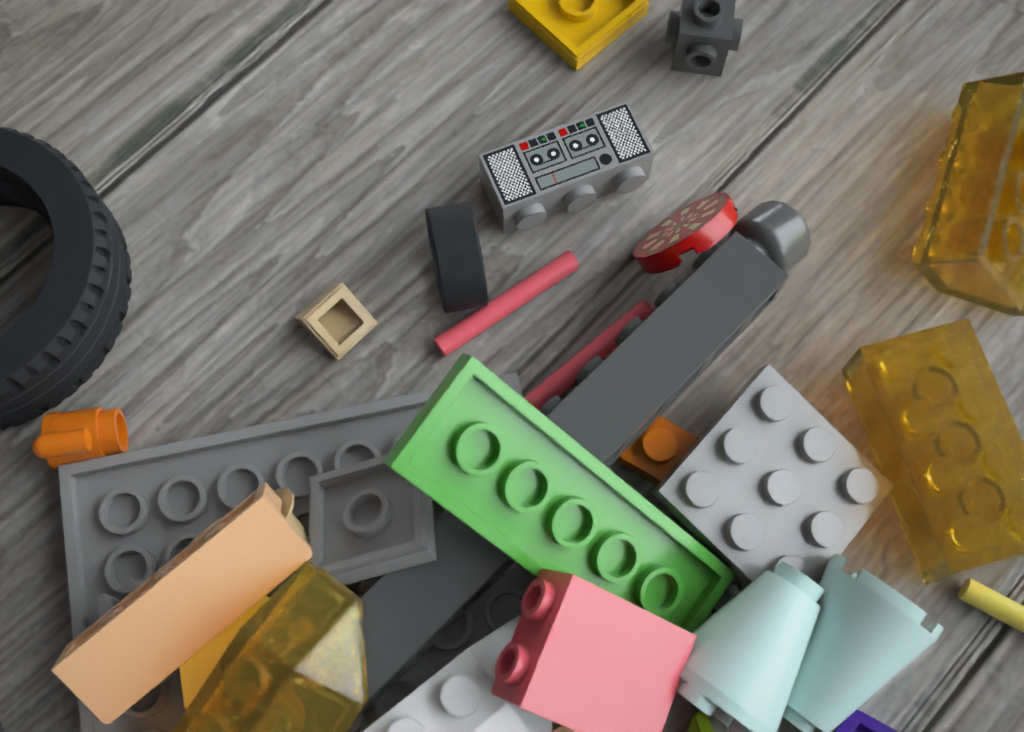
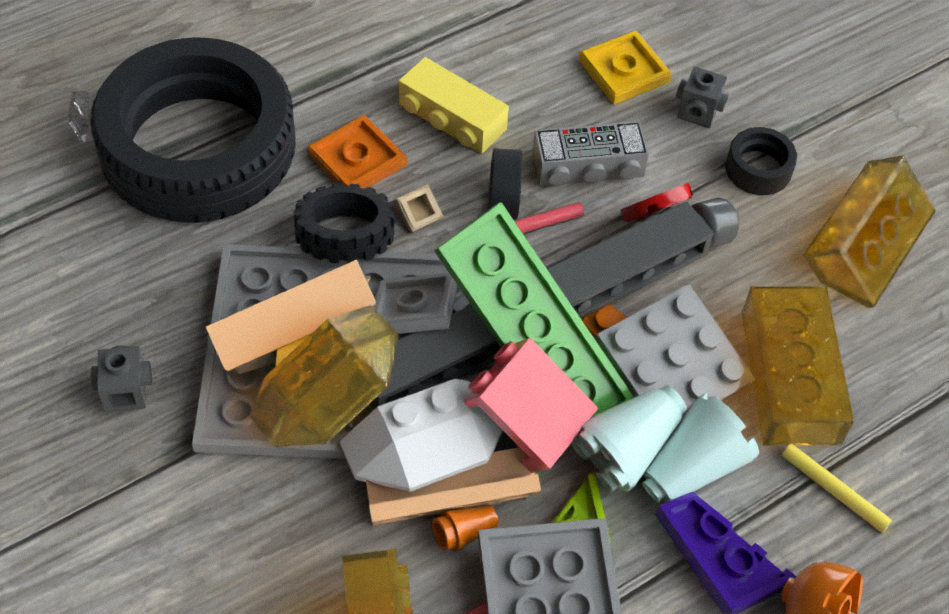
camera: 10 degrees right, 15 degrees down
(81, 435) = (242, 230): orange piece -> none
(225, 252) = (357, 154): none -> orange tile
(243, 429) = (344, 244): none -> black tyre
(346, 134) = (453, 105): none -> light yellow brick
(820, 84) = (766, 141): none -> black tyre

